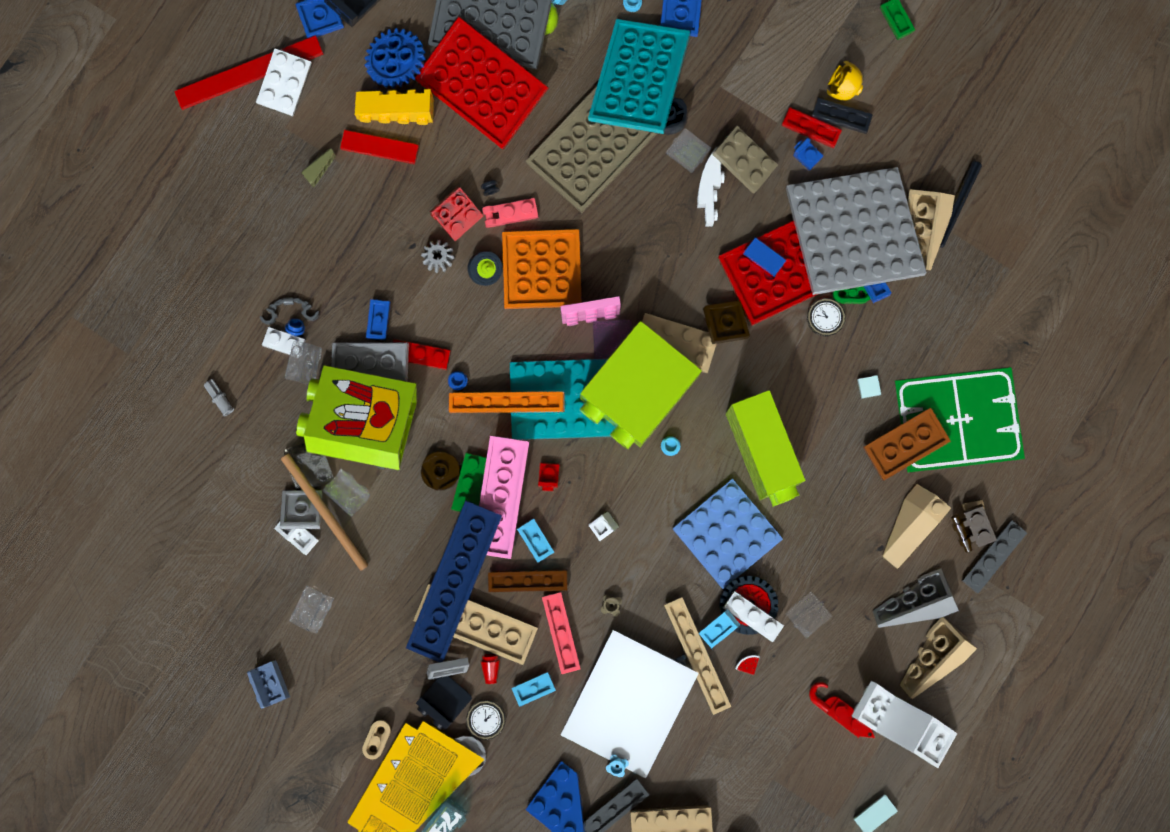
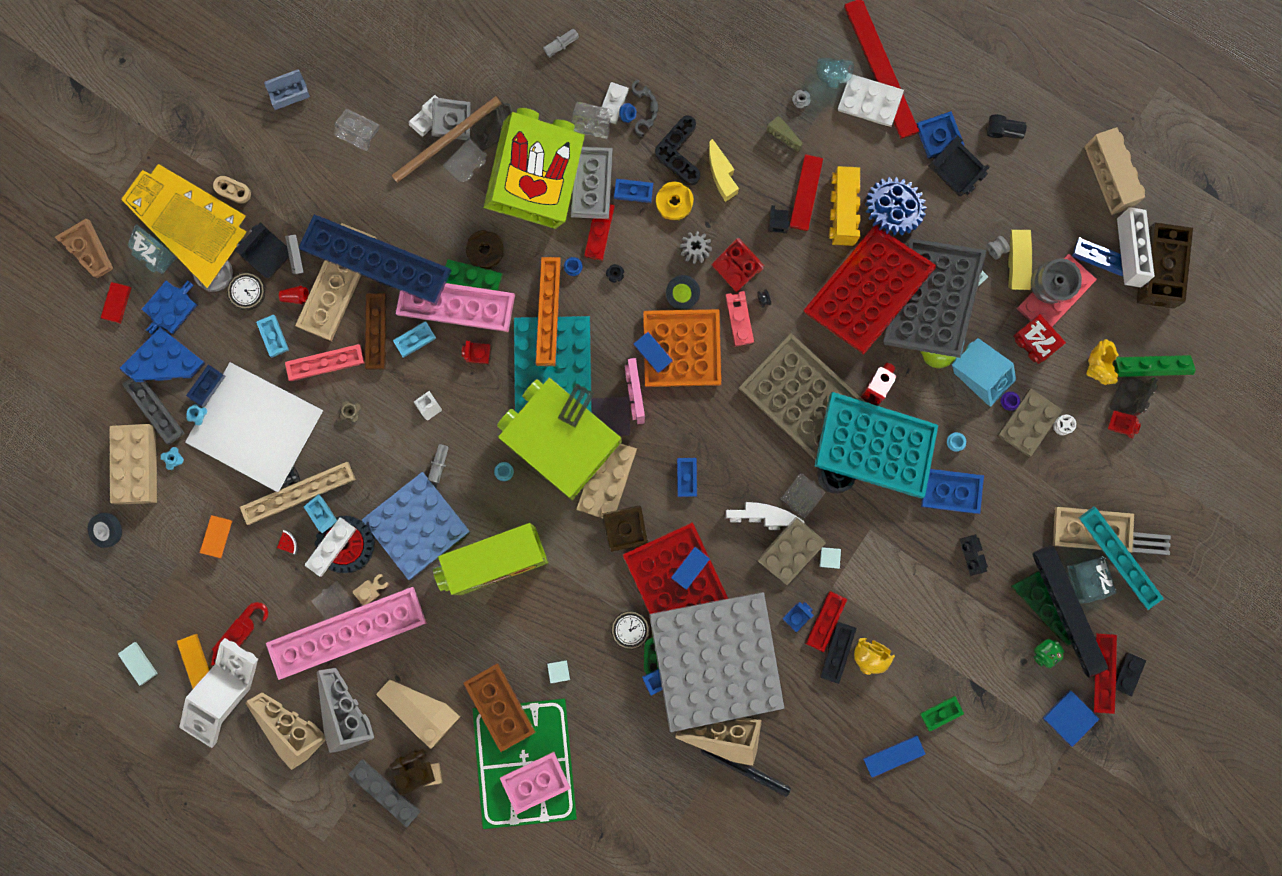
camera: 90 degrees right, 0 degrees up
(254, 117) = (834, 71): none -> clear light blue cylinder
(281, 156) = (801, 103): none -> light grey plate
(332, 281) = (672, 148): none -> black beam
(357, 231) = (722, 172): none -> light yellow slope
(382, 287) = (671, 211): none -> yellow plate
(409, 174) = (778, 220): none -> black panel
(459, 337) = (615, 268): none -> black plate
(503, 801) = (169, 307): none -> blue plate
(548, 296) = (653, 352): none -> blue tile
(578, 74) = (879, 385): none -> torso
(587, 757) = (205, 385): none -> dark blue plate
(594, 357) = (583, 391): none -> clear smoke tile
(664, 512) = (438, 463): none -> light grey axle
(665, 783) = (178, 459): none -> medium azure plate
(673, 263) = (687, 477): none -> blue plate
(744, 738) = (216, 536): none -> orange hinge
(750, 123) = (830, 558): none -> light aqua tile
(795, 580) = (368, 591): none -> tan plate
(838, 600) = (346, 633): none -> bright pink plate
(873, 755) = (193, 658): none -> light orange tile
(939, 64) = (894, 756): none -> blue tile
(979, 406) = (535, 783): none -> bright pink plate

